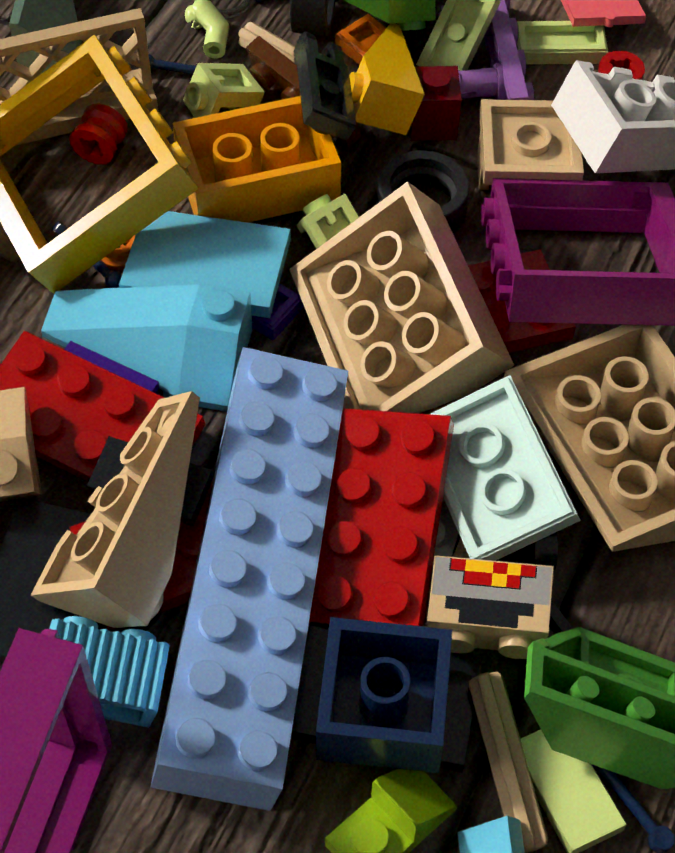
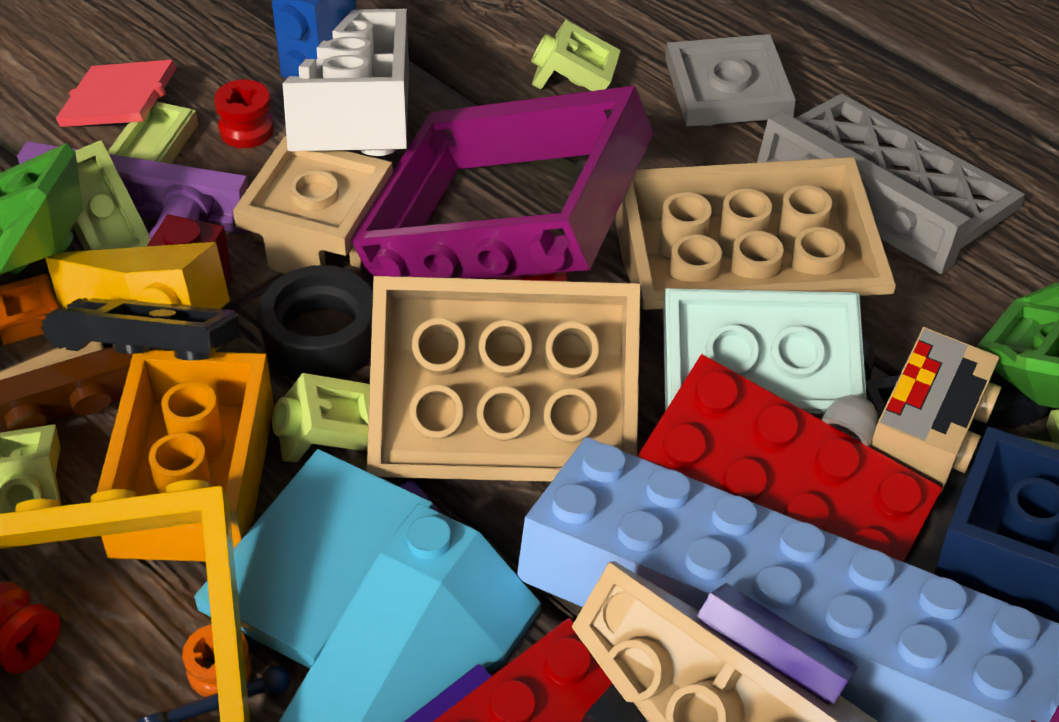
camera: 70 degrees left, 10 degrees down
(176, 521) = (777, 643): none -> dark purple tile
(446, 541) = (854, 417): none -> light grey hinge

